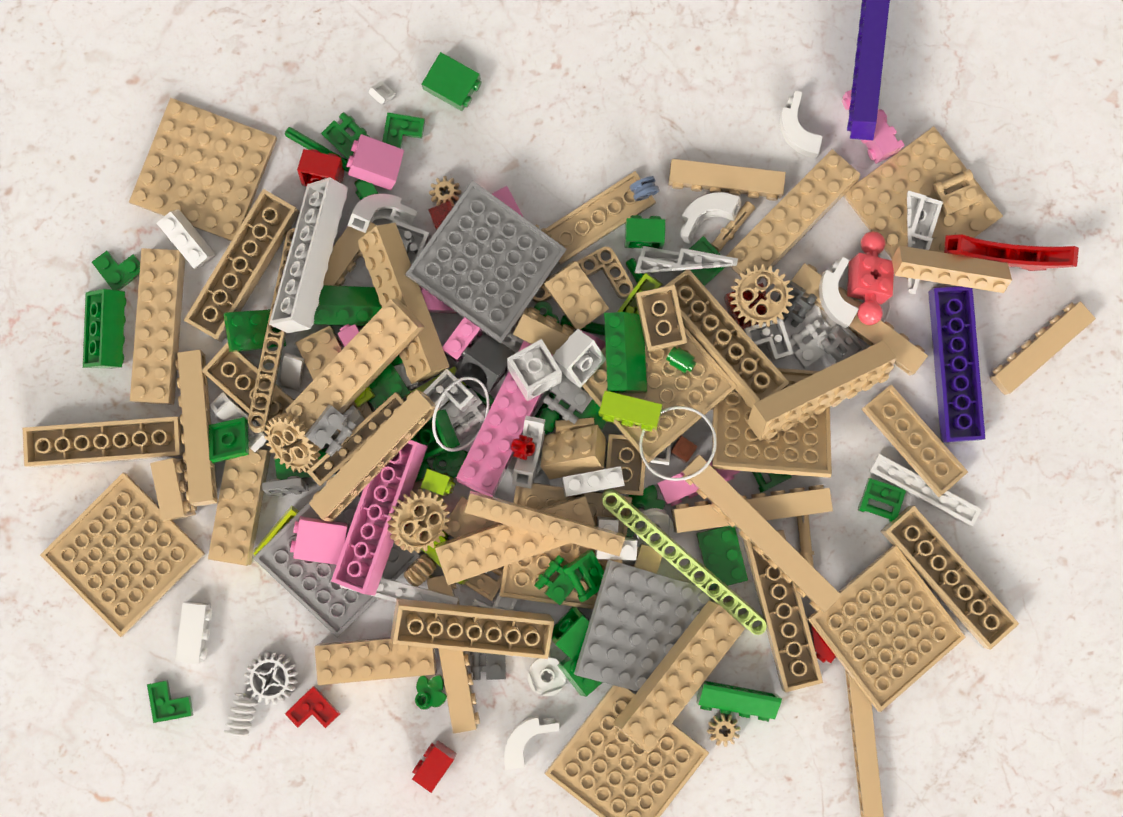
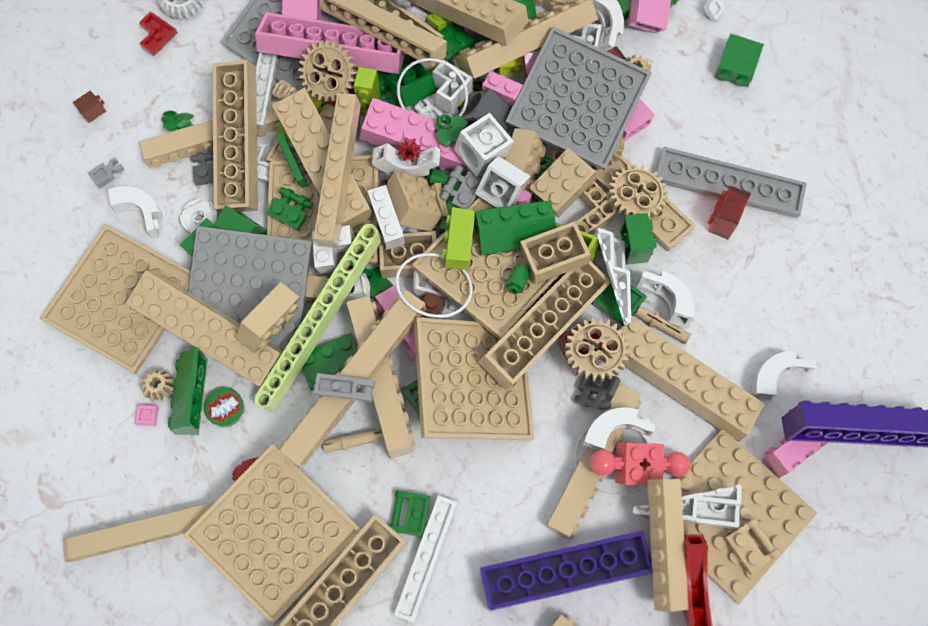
camera: 80 degrees right, 15 degrees down
(371, 661) = (198, 53): tan brick -> none
(396, 786) = (90, 106): none -> copper brick
(402, 125) = (687, 26): green plate -> none
(435, 765) = (108, 129): red brick -> none
(481, 775) = (104, 174): none -> light grey plate
(507, 400) = (452, 130): none -> green plate
(508, 571) = (292, 161): none -> green tile
(590, 125) = (713, 176): none -> light grey plate
(591, 572) = (302, 230): green plate -> none
(609, 231) = (637, 191): none -> tan gear
(629, 136) = (728, 211): none -> clear red brick
(644, 188) = (680, 230): sand blue wheel -> none
(690, 610) = (268, 318): none -> tan brick
(726, 179) = (709, 311): tan brick -> none
(750, 743) = (146, 415): none -> bright pink tile
(753, 666) = (224, 407): none -> tile
(774, 337) = (559, 374): white brick -> none
(776, 544) = (343, 387): none -> light grey plate
(785, 623) = (256, 431): tan brick -> none
(812, 350) = (554, 422): white plate -> none
(821, 391) = (512, 423): tan brick -> none
(844, 340) = (568, 451): light grey plate -> none
(915, 440) = (476, 538): tan plate -> none

